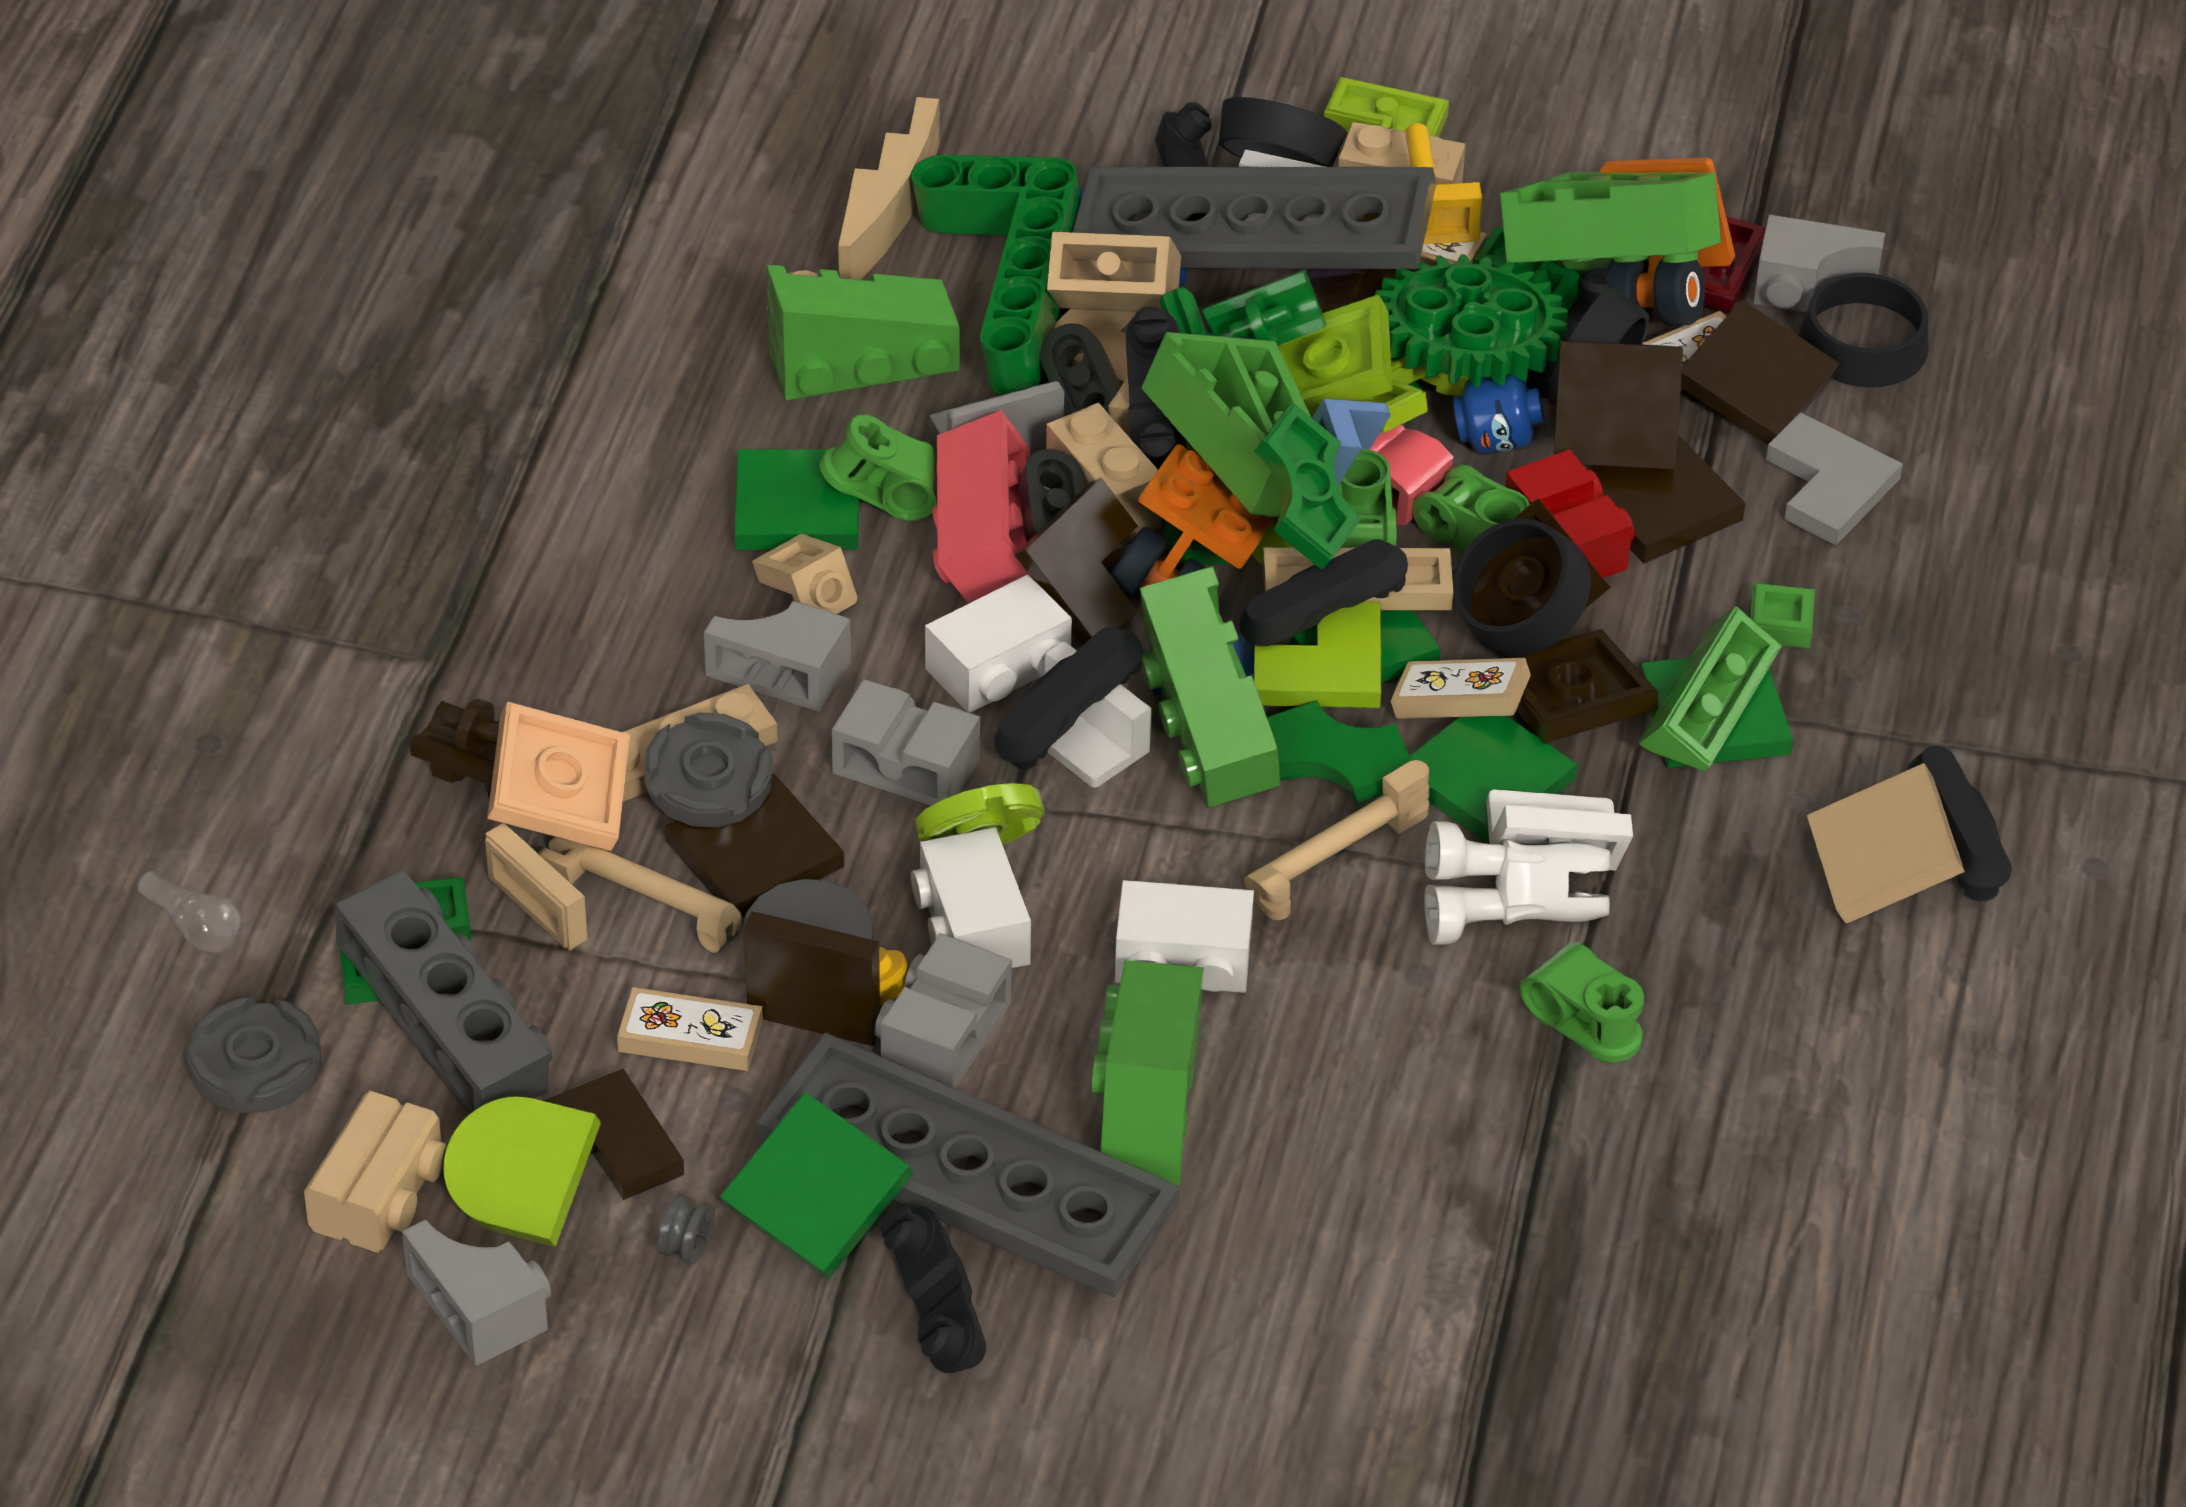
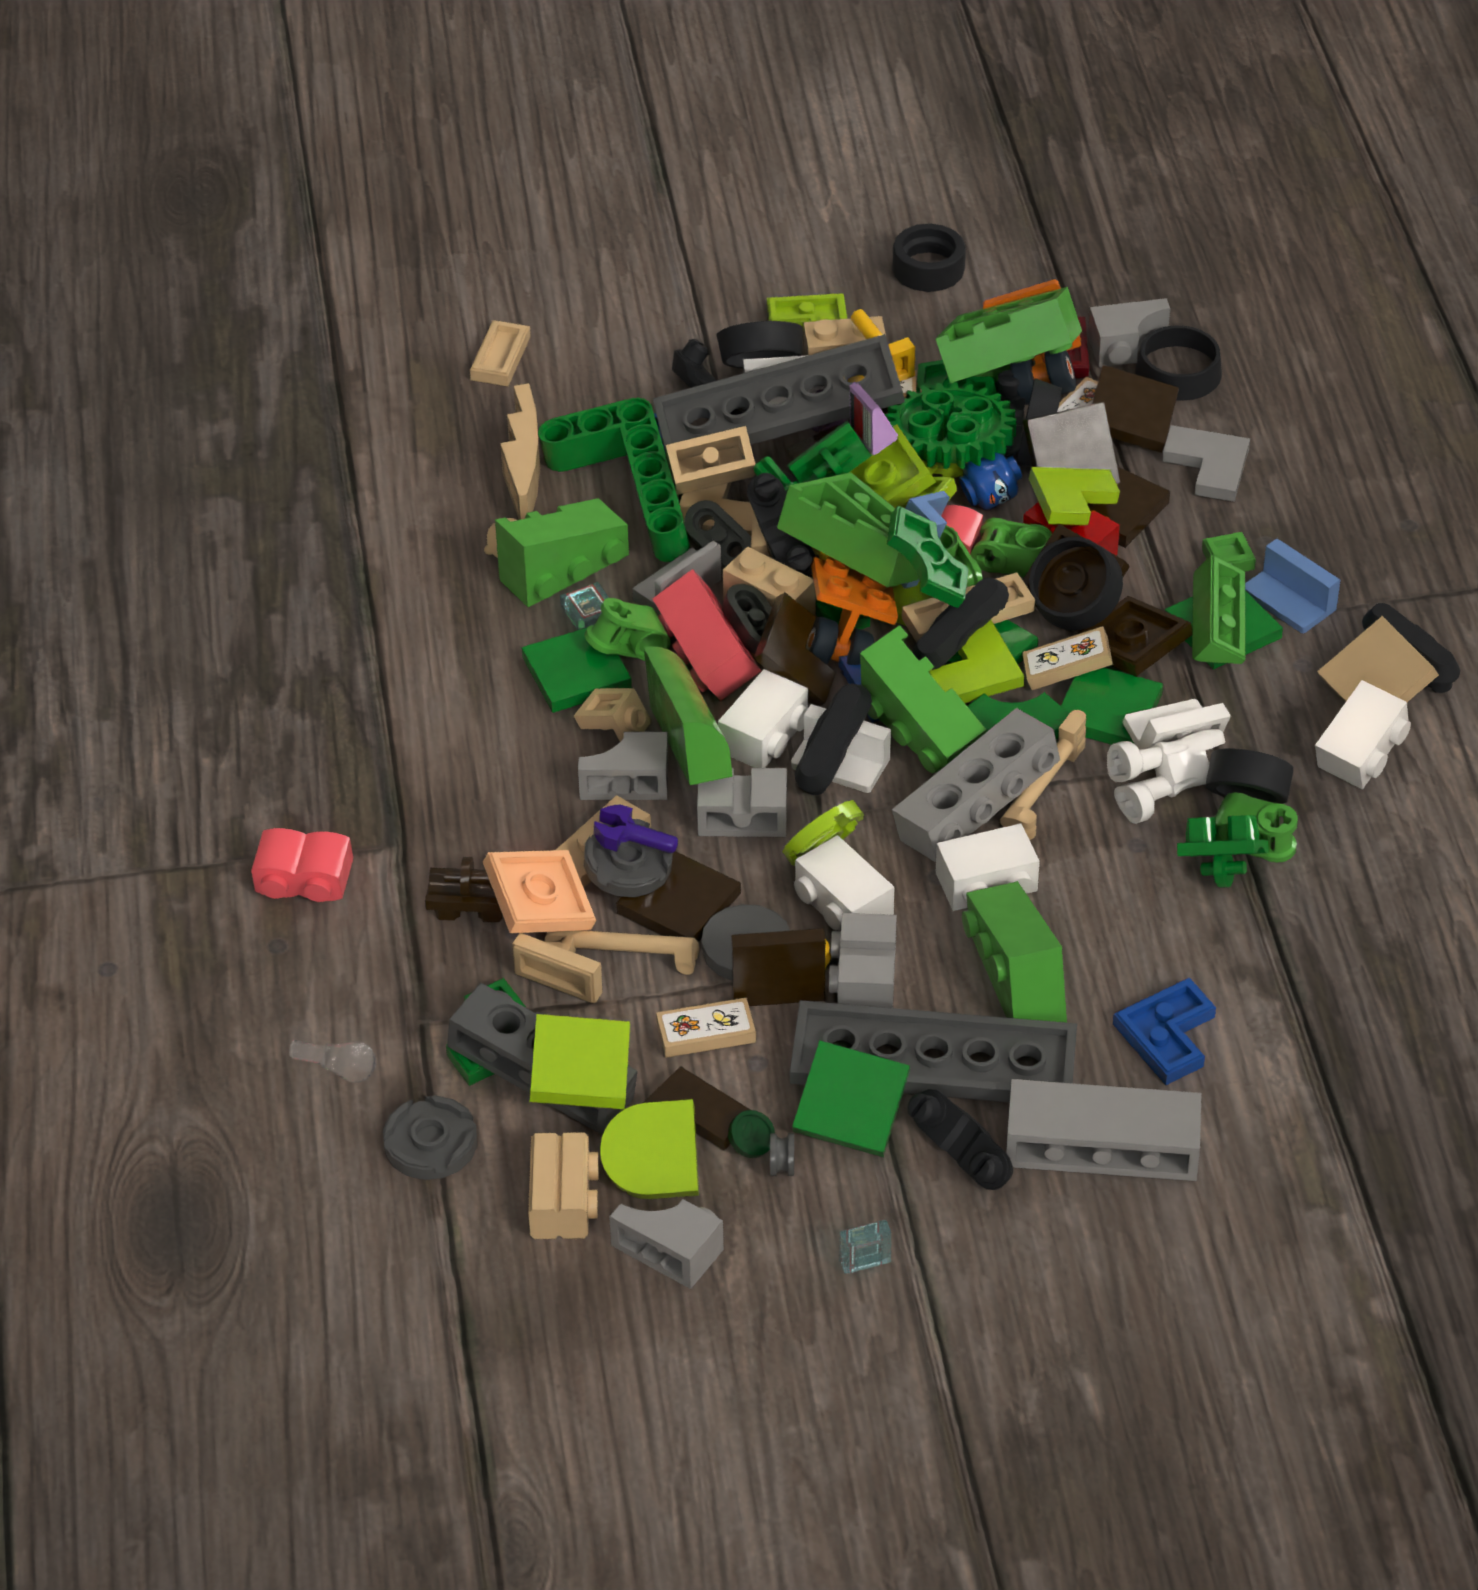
camera: 20 degrees left, 0 degrees up
(289, 646) = (302, 864): none -> coral brick
(473, 1015) = (580, 1061): none -> lime tile
(659, 1182) = (750, 1133): none -> dark green piece
(721, 713) = (629, 831): none -> dark purple bar
(722, 1387) = (865, 1246): none -> clear light blue tile
(846, 407) = (584, 605): none -> clear light blue tile
(881, 604) = (685, 718): none -> bright green brick
(941, 50) = (500, 353): none -> tan tile
(1133, 1341) = (1104, 1130): none -> light grey brick
(1231, 816) = (977, 783): none -> light grey brick
(1297, 1227) = (1159, 1026): none -> blue tile
(1348, 278) = (869, 421): none -> lavender slope
(1497, 996) = (1202, 841): none -> green hips
(1575, 452) = (1067, 491): none -> lime tile
(1588, 110) = (928, 239): none -> black tyre
(1609, 927) = (1249, 773): none -> black tyre
(1809, 920) = (1363, 735): none -> white brick
(1841, 690) = (1294, 587): none -> medium blue panel

